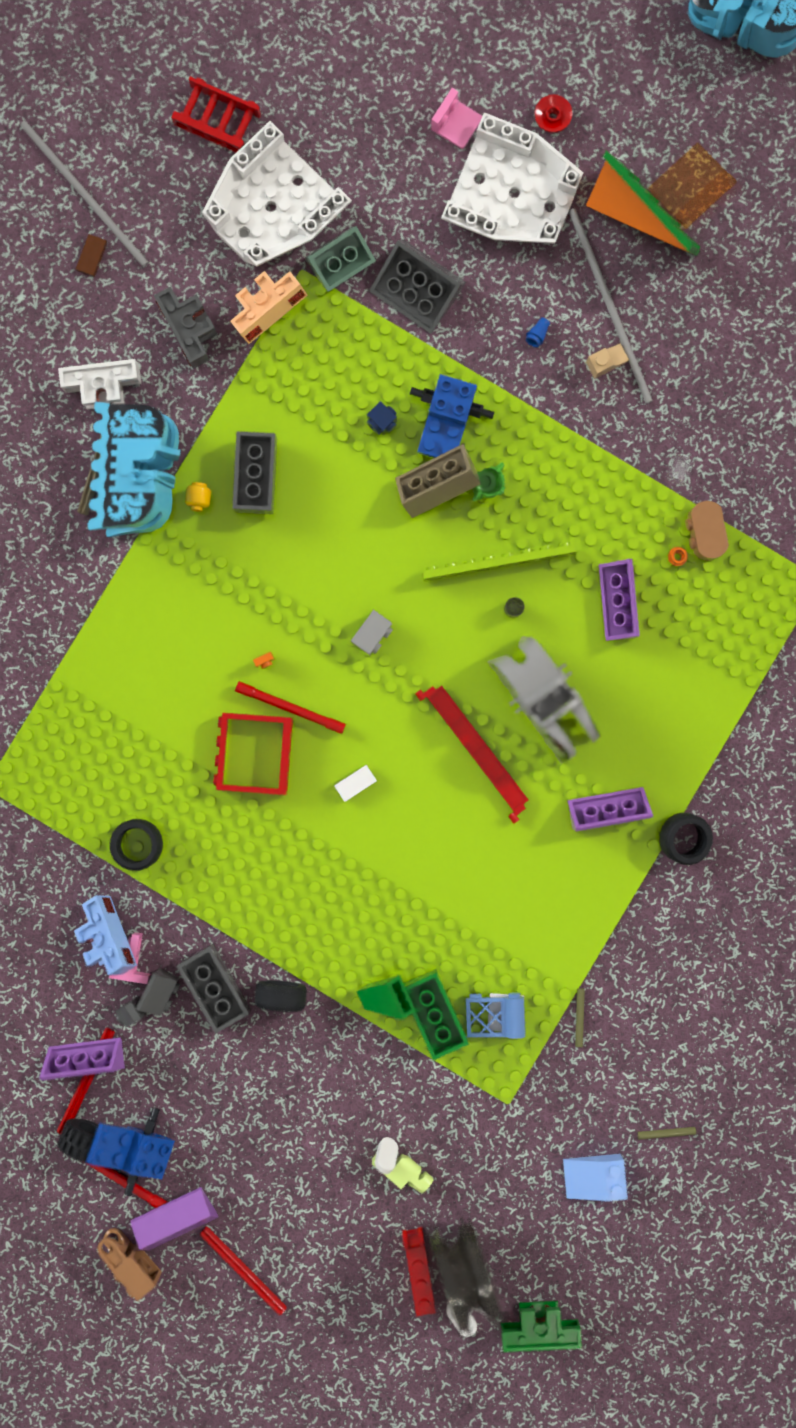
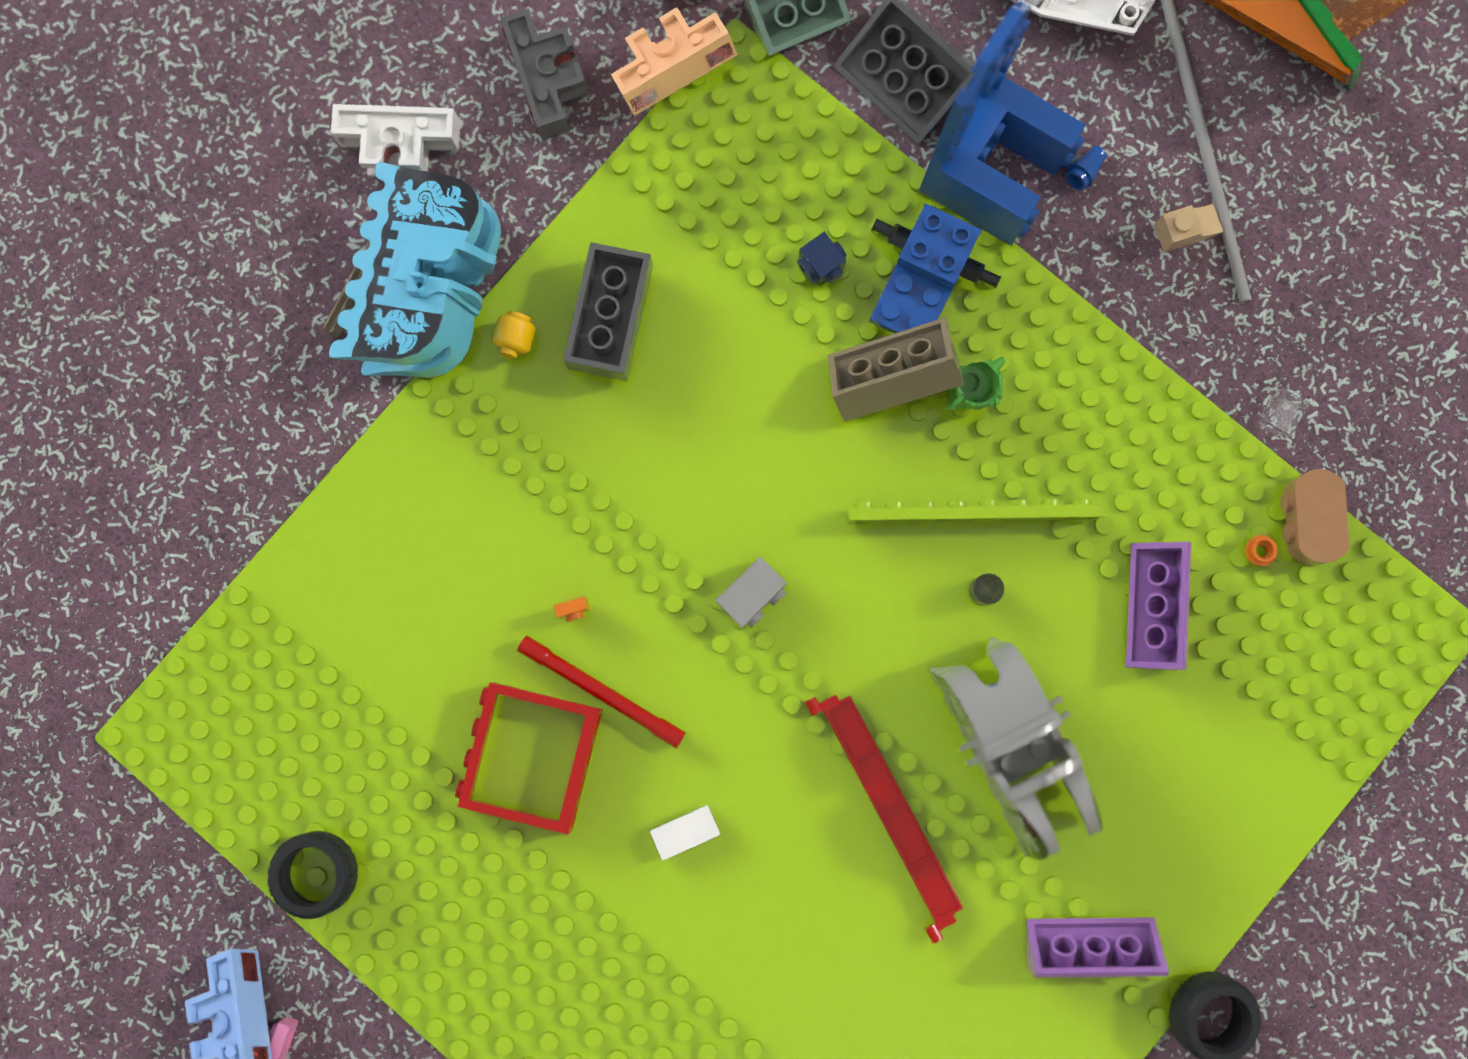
camera: 15 degrees right, 5 degrees down
(462, 320) = (994, 113): none -> blue bracket

